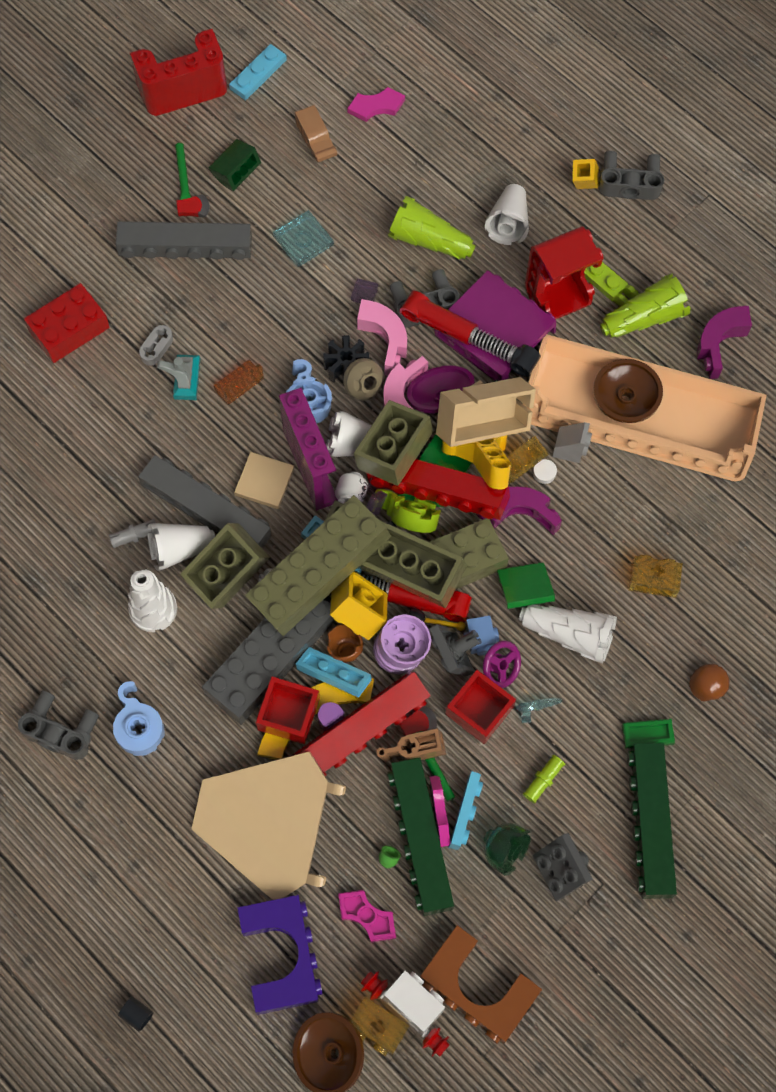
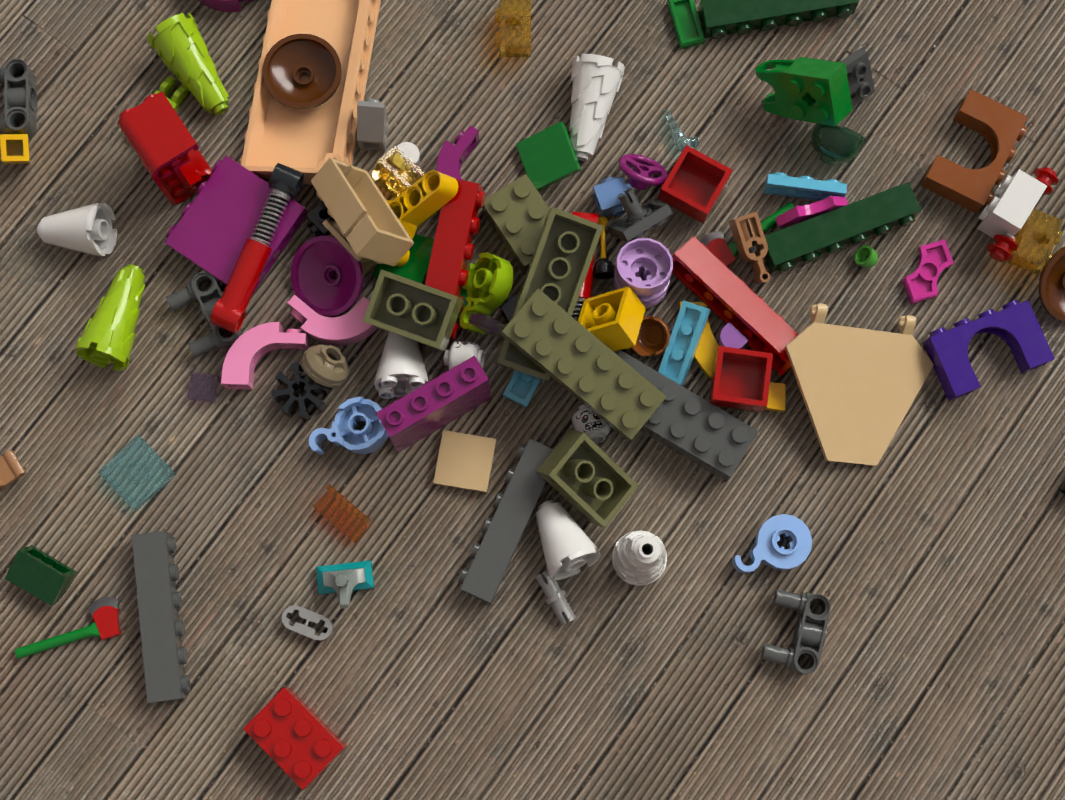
camera: 100 degrees left, 10 degrees up
(543, 779) = (755, 116): lime pin -> none
(553, 818) = (807, 90): none -> green brick

